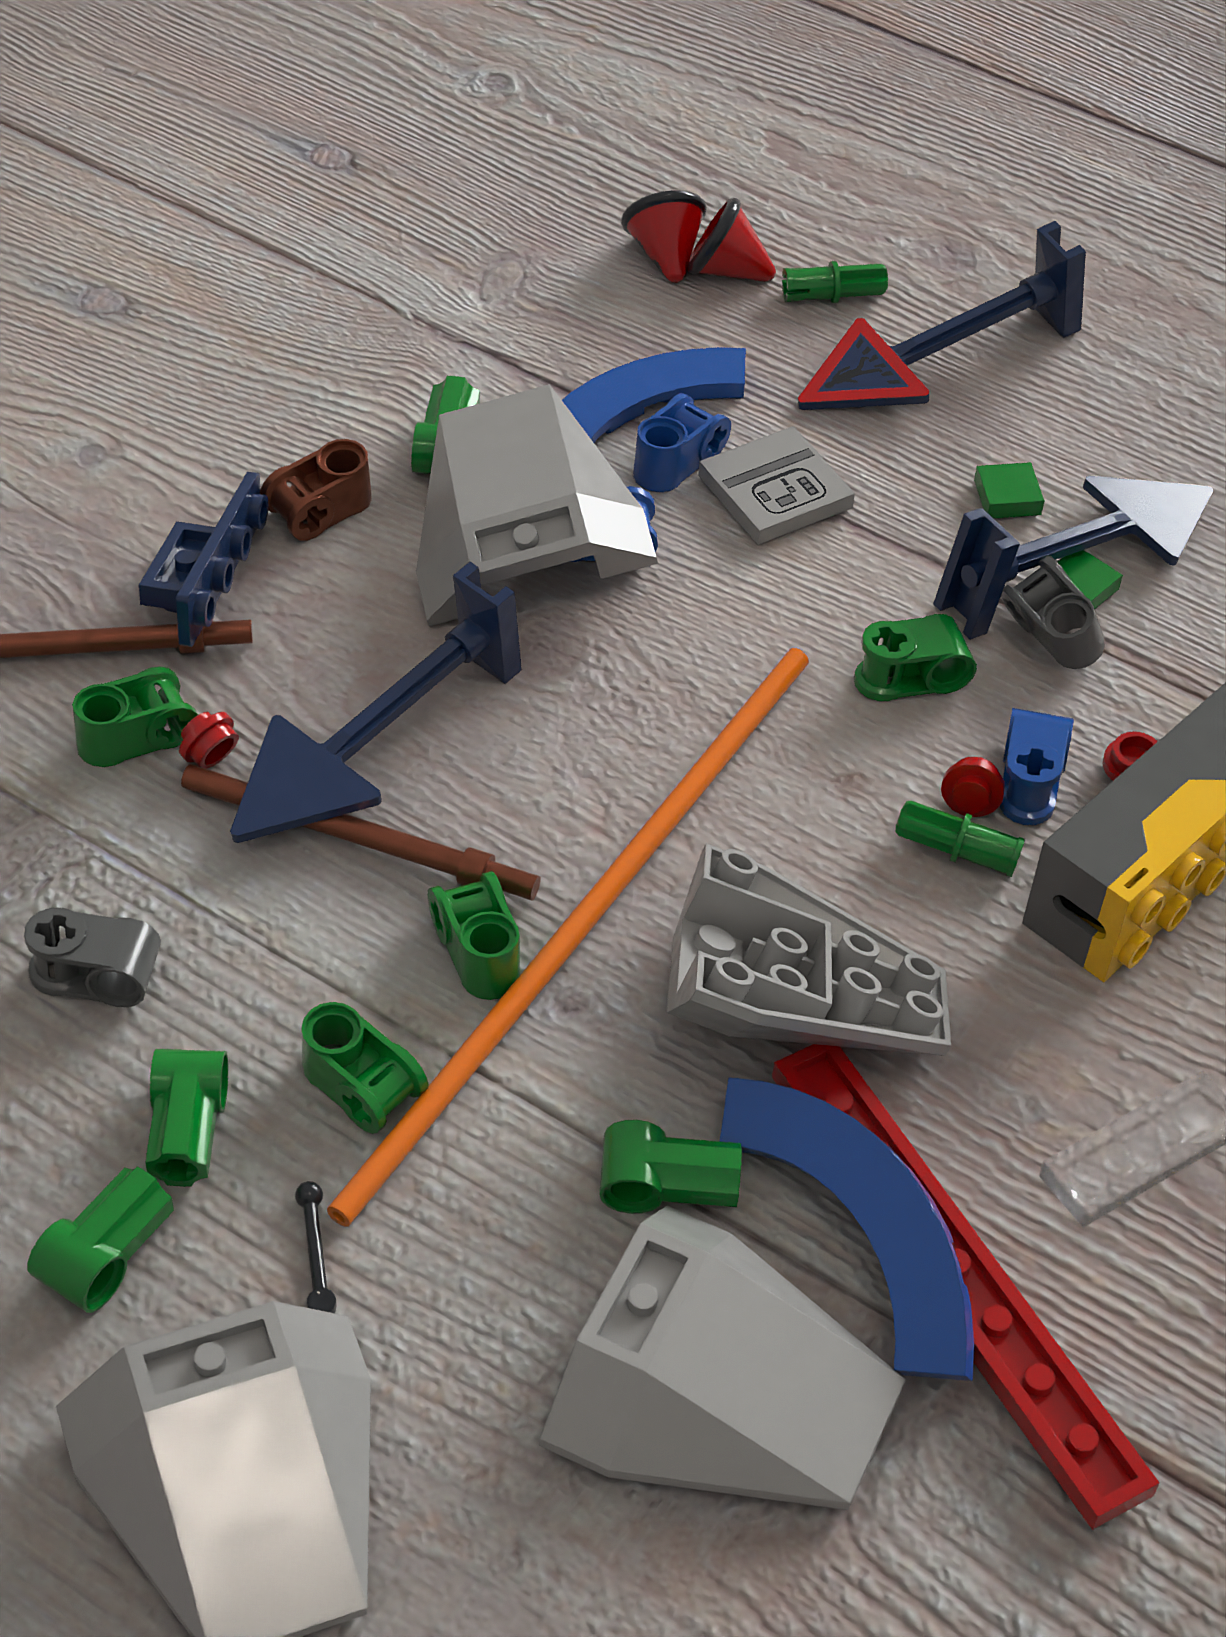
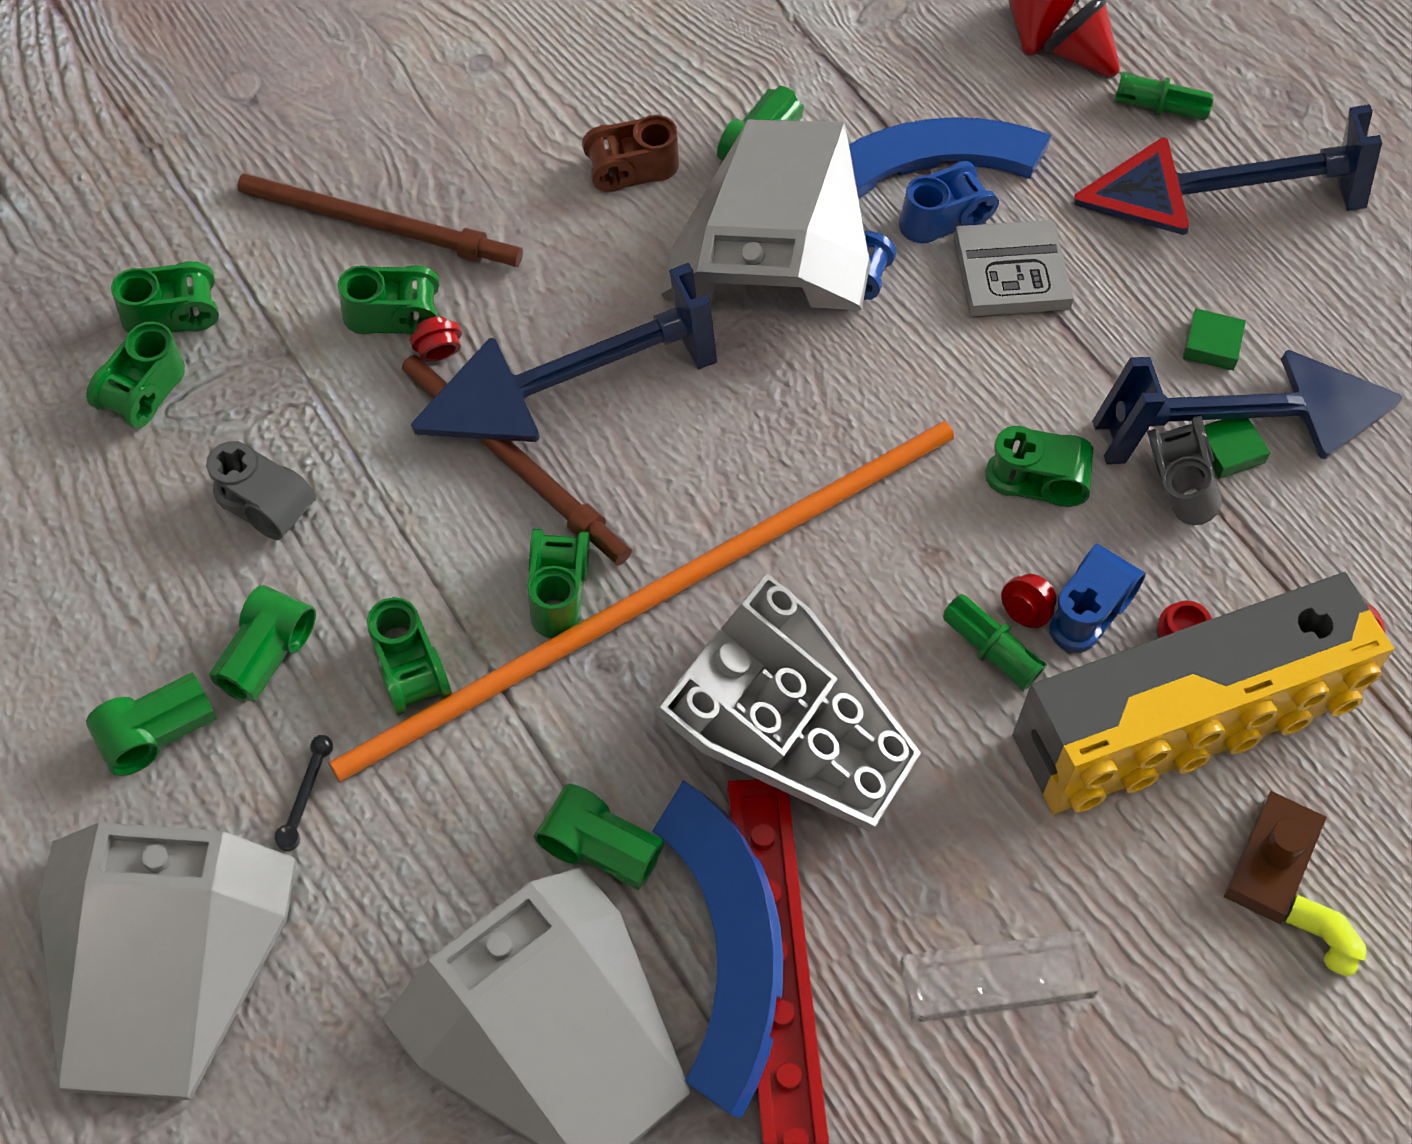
camera: 25 degrees right, 10 degrees up
(201, 560) = (506, 184): dark blue bracket -> none

